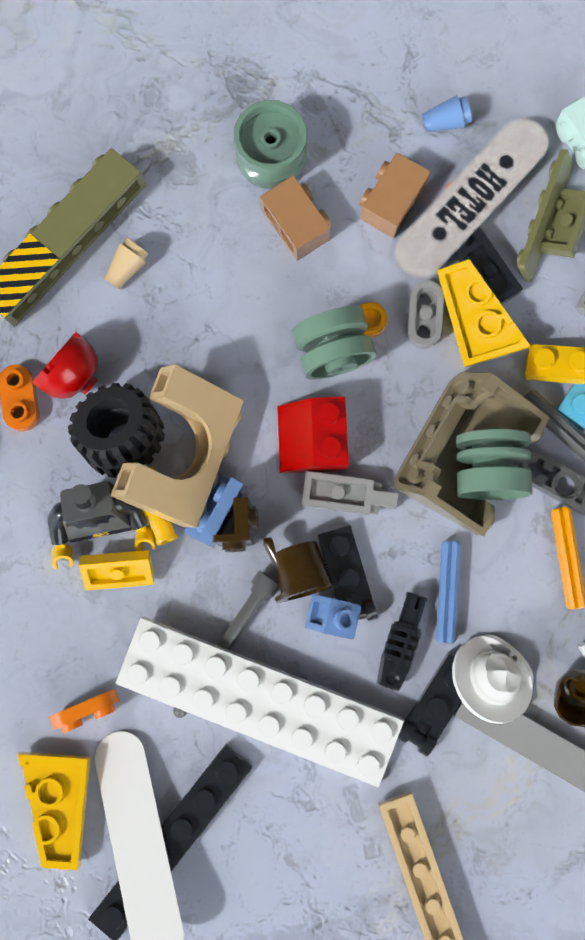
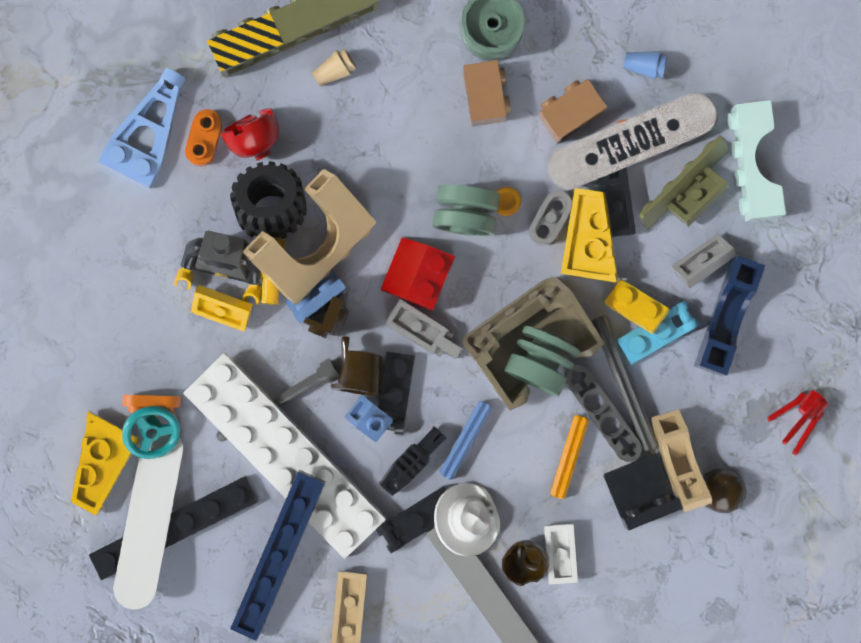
camera: 20 degrees right, 5 degrees up
(86, 732) = (145, 420): none -> teal piece
(303, 820) = (278, 555): none -> dark blue plate

